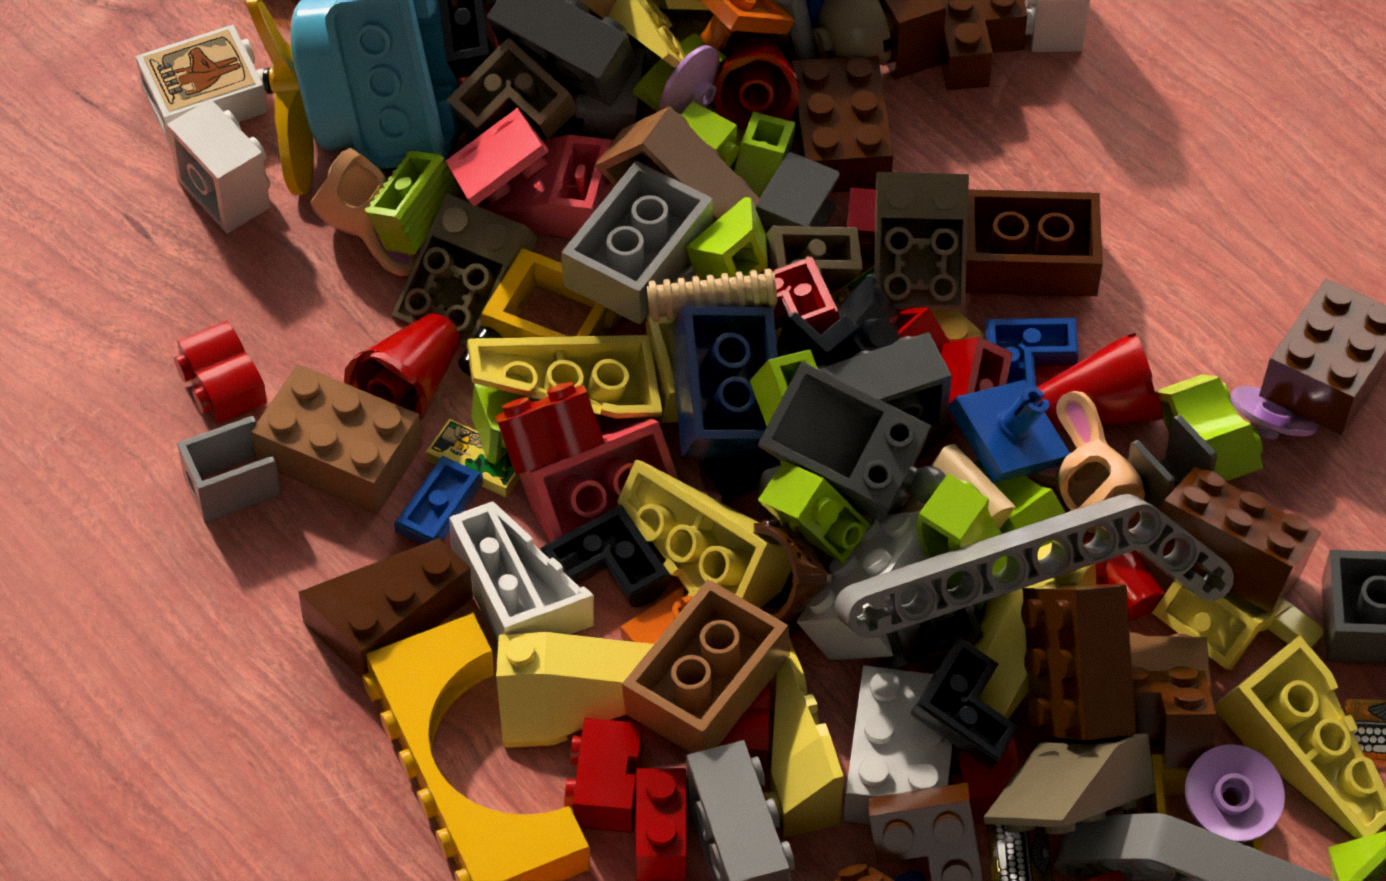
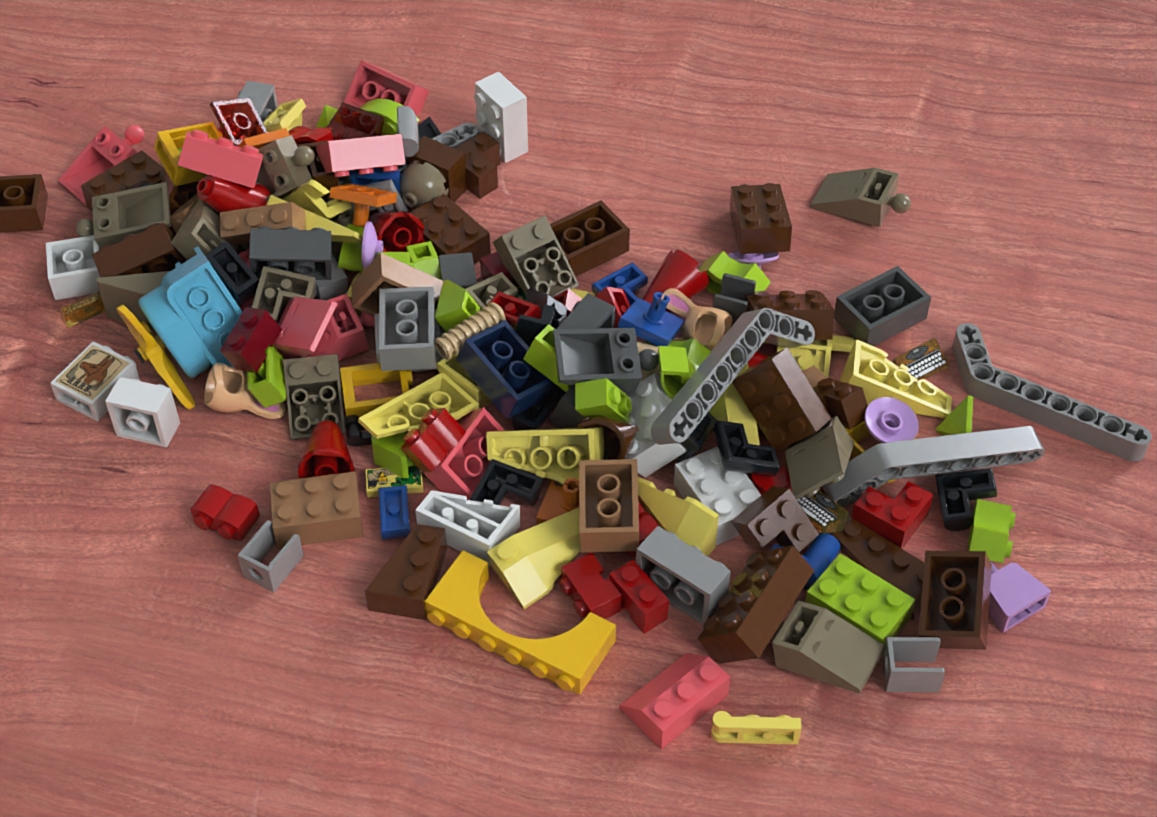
camera: 35 degrees left, 5 degrees down
(411, 139) = (250, 338): none -> dark red brick

